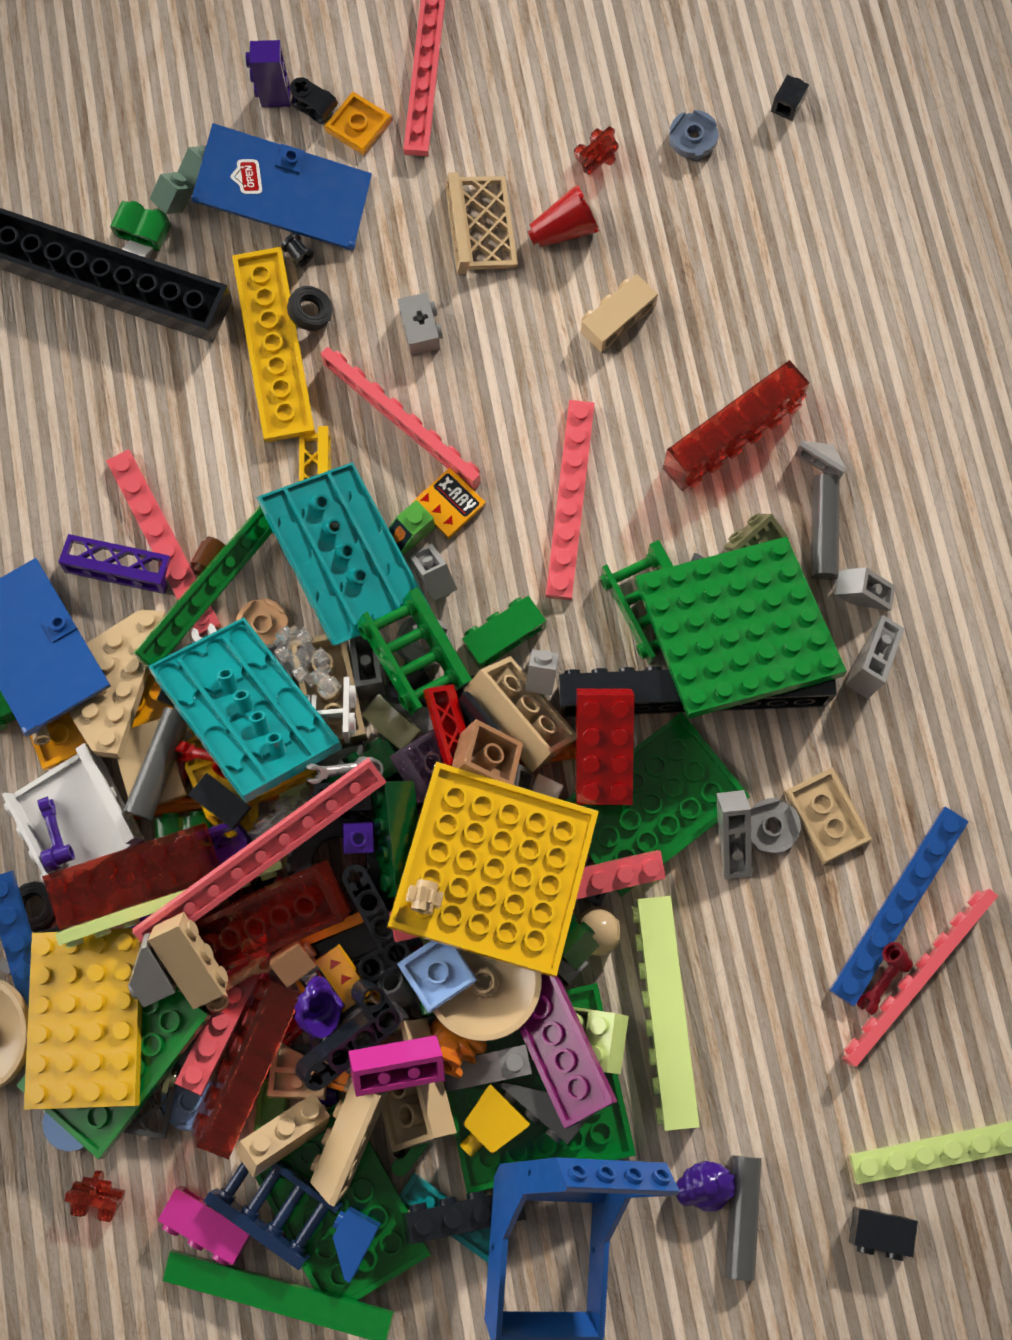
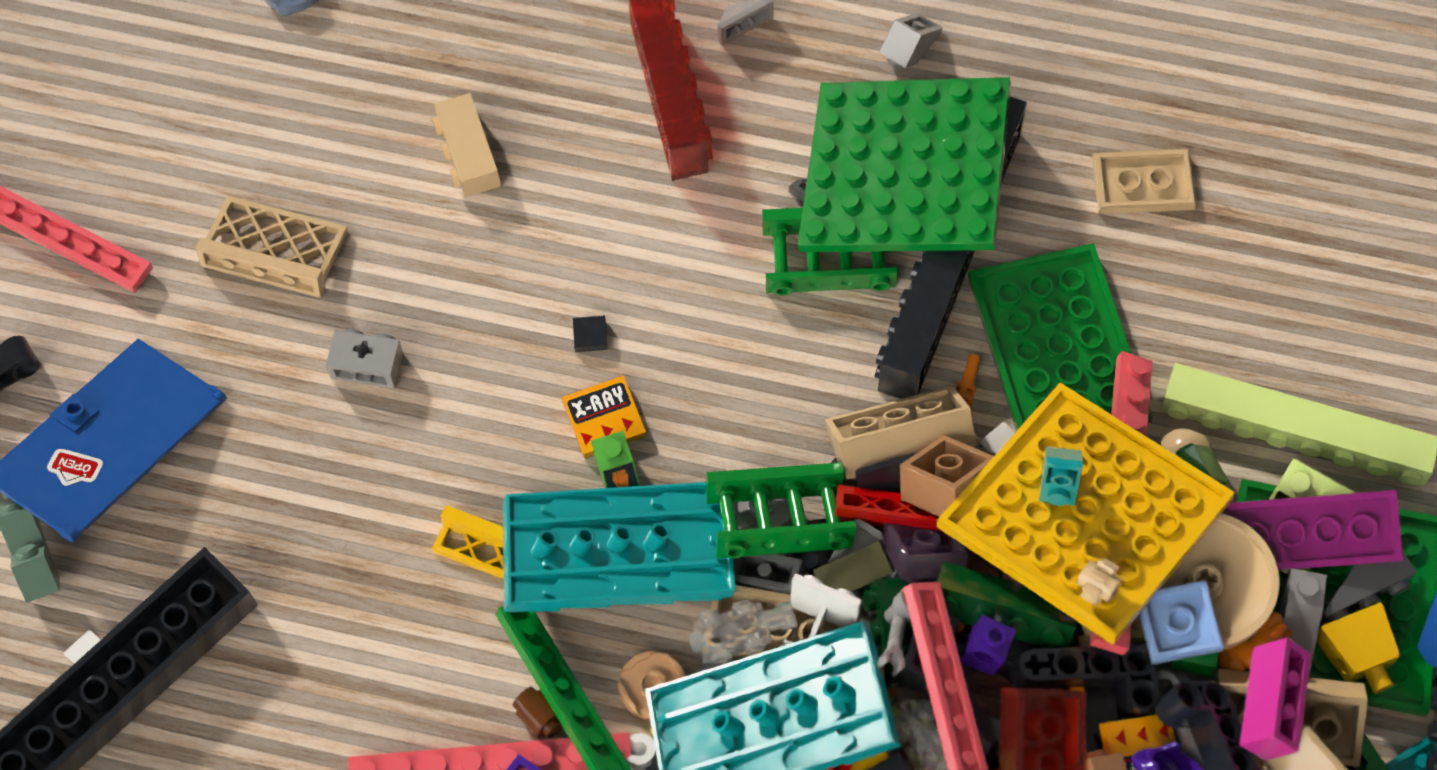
camera: 65 degrees left, 10 degrees down
(140, 224) = (53, 628): green brick -> none
(273, 345) = (300, 533): yellow plate -> none
(297, 250) = (193, 458): black bush -> none
(300, 318) = (278, 486): black tyre -> none
(358, 123) = (63, 328): light orange tile -> none
(394, 412) = (463, 429): coral plate -> none
(433, 572) = (681, 462): light grey slope -> none
(503, 632) = (790, 416): green brick -> none
(505, 836) = (1060, 476): none -> teal slope
(509, 465) = (590, 333): none -> black tile
(542, 672) = (862, 388): light grey slope -> none
(564, 220) = (324, 150): red cone -> none
(570, 500) = (663, 287): coral plate -> none
(599, 151) = (259, 81): clear red hips -> none
(604, 746) = (985, 351): red brick -> none
(735, 834) = (1128, 269): light grey slope -> none
(760, 529) = (797, 116): olive bracket -> none
(785, 835) = (1134, 254): light grey plate -> none
(825, 526) = (820, 48): dark grey brick -> none
(875, 658) = (992, 58): light grey slope -> none
(898, 906) = (1269, 156): blue plate -> none
(898, 960) = (1319, 179): dark red brick -> none
(911, 985) = (1358, 172): coral plate -> none

